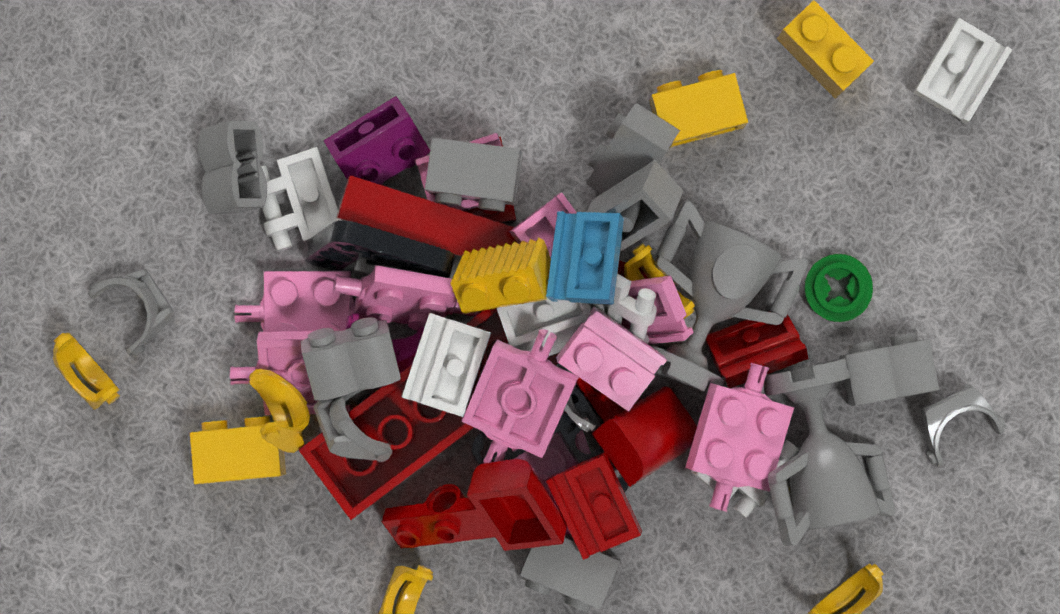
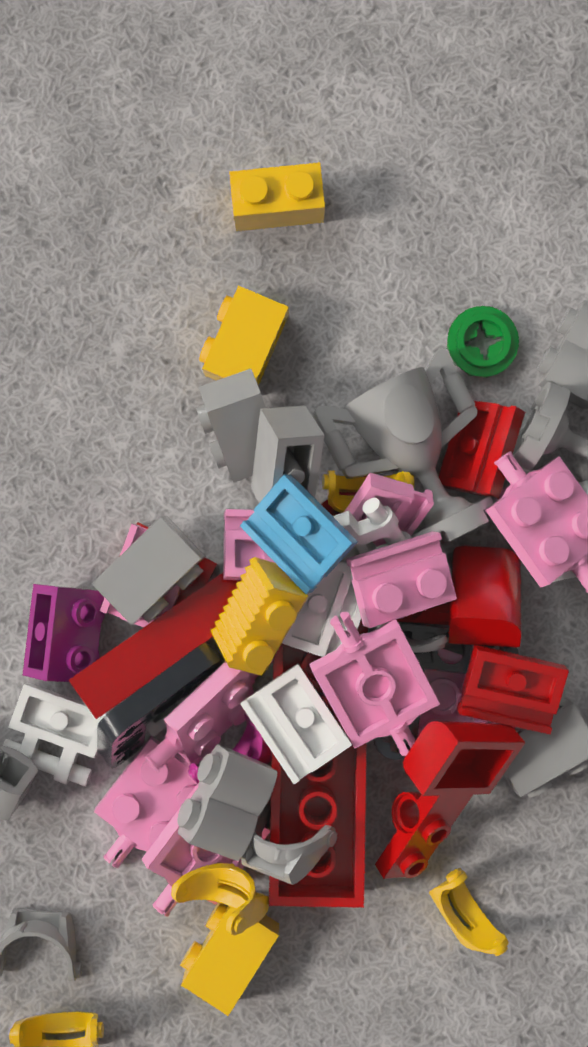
camera: 50 degrees left, 0 degrees up
(962, 71) = (383, 100): white plate -> none

